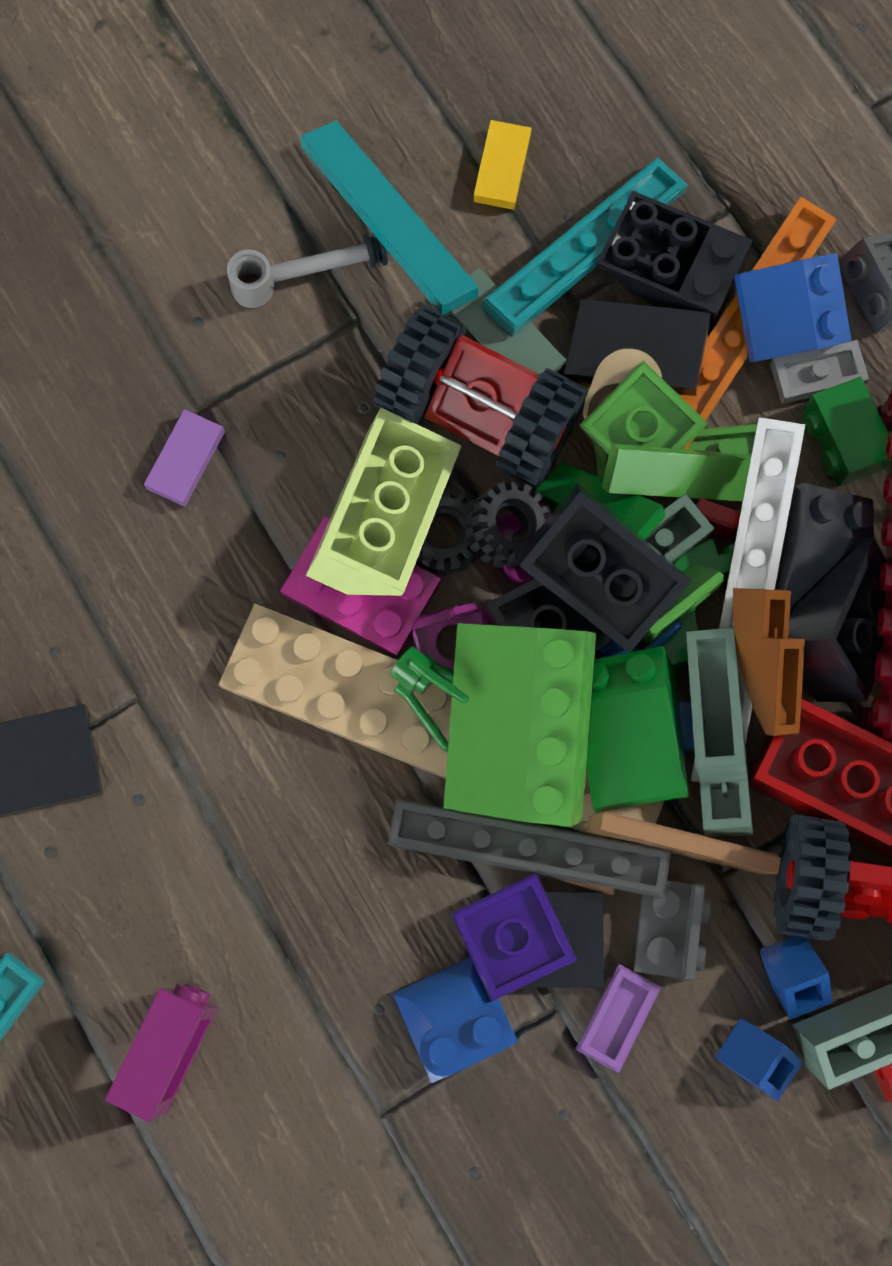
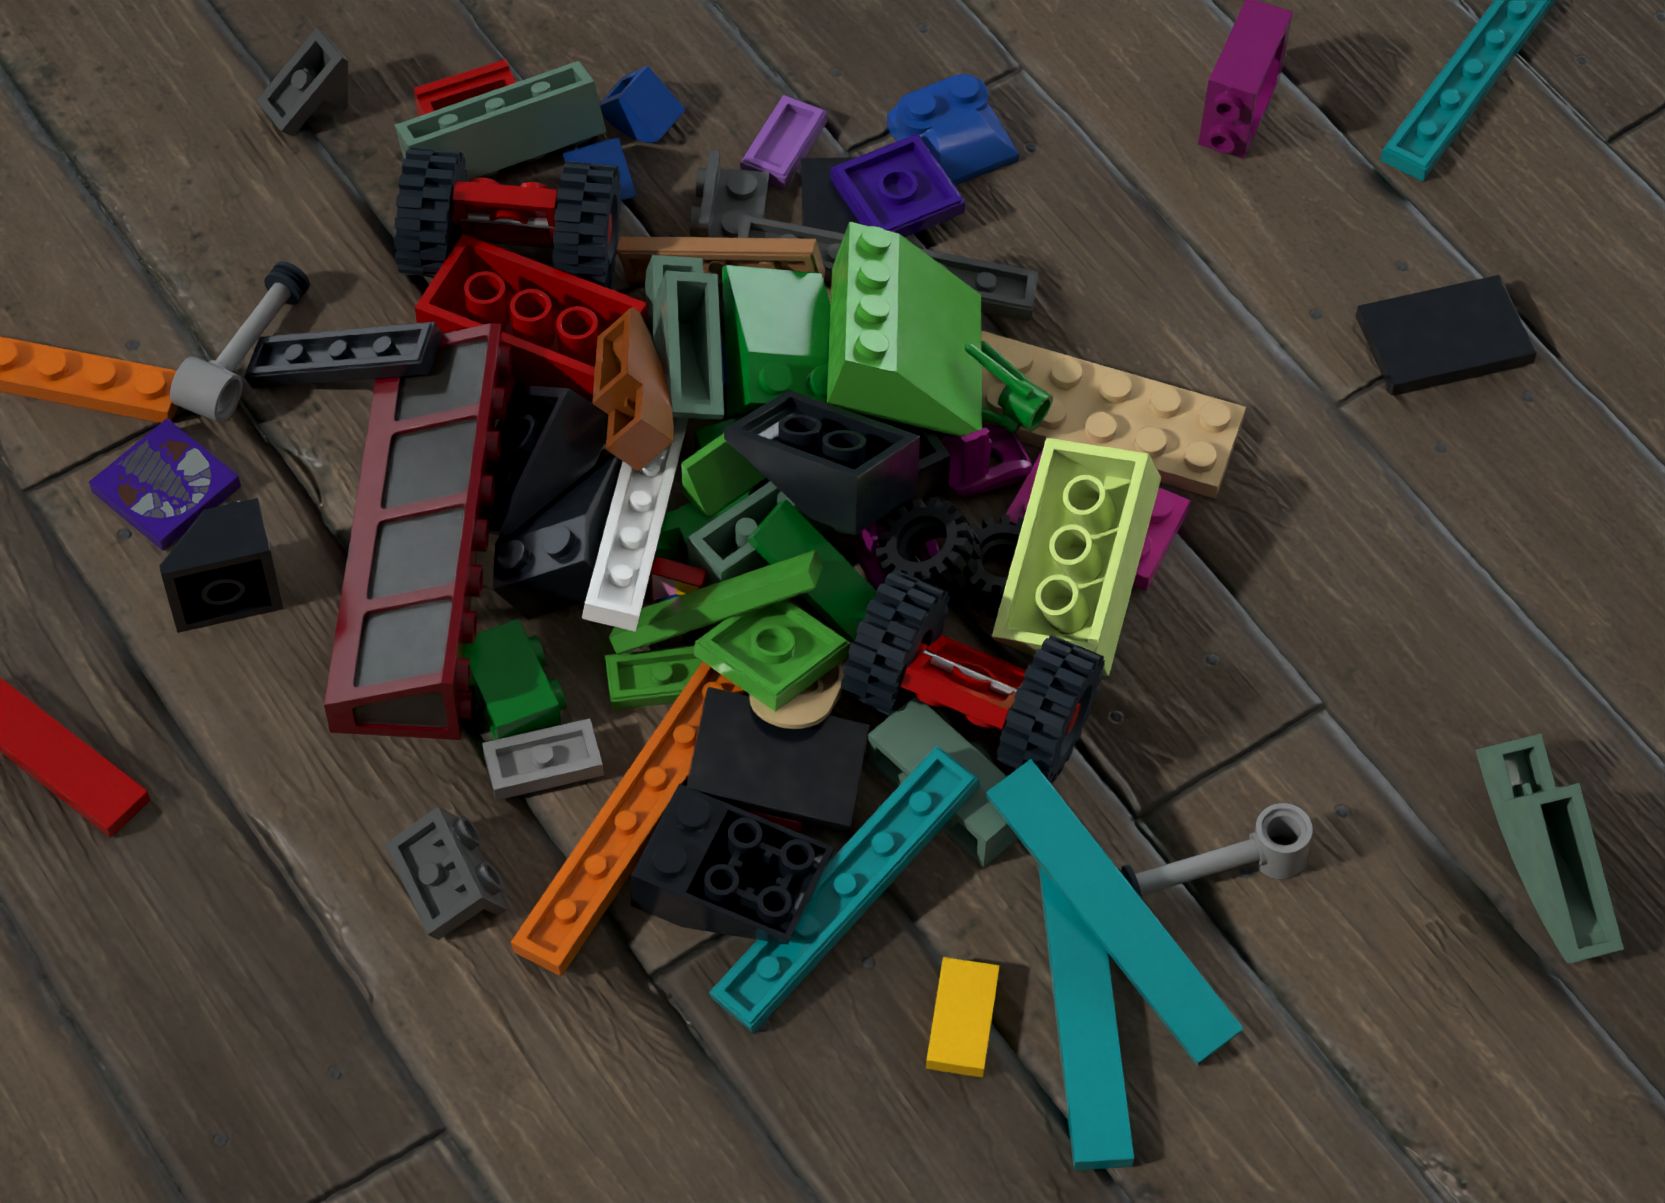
camera: 175 degrees right, 20 degrees down
(46, 266) = (1551, 847): none -> sand green slope
(184, 458) = (1328, 643): medium lavender tile -> none
(412, 142) = (1086, 1037): none -> teal tile
(793, 307) = (580, 799): blue slope -> none

